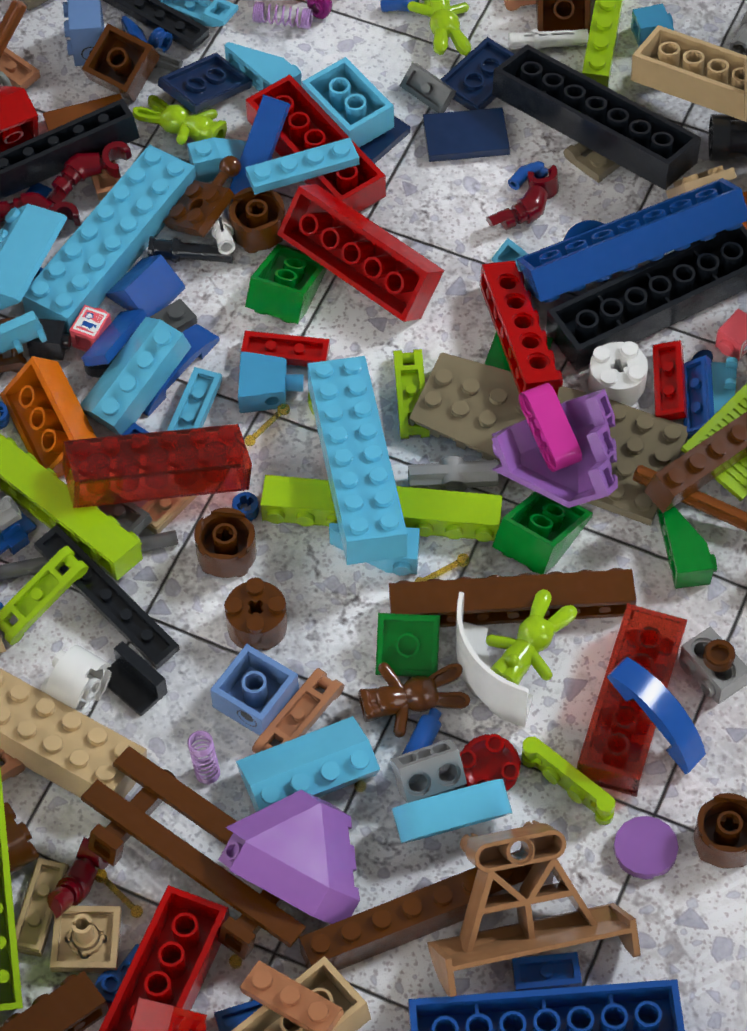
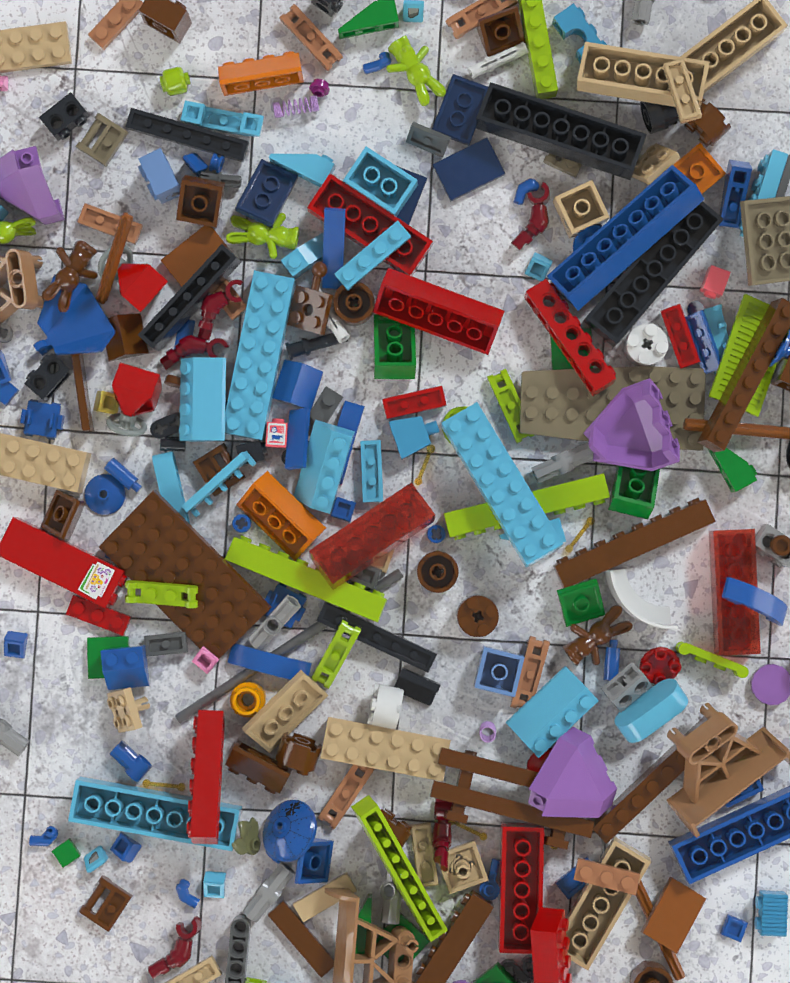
camera: 15 degrees left, 30 degrees up
(532, 637) = (659, 572): lime animal -> none
(550, 427) = (621, 417): dark pink beam -> none
(588, 198) = (580, 208): none -> tan brick

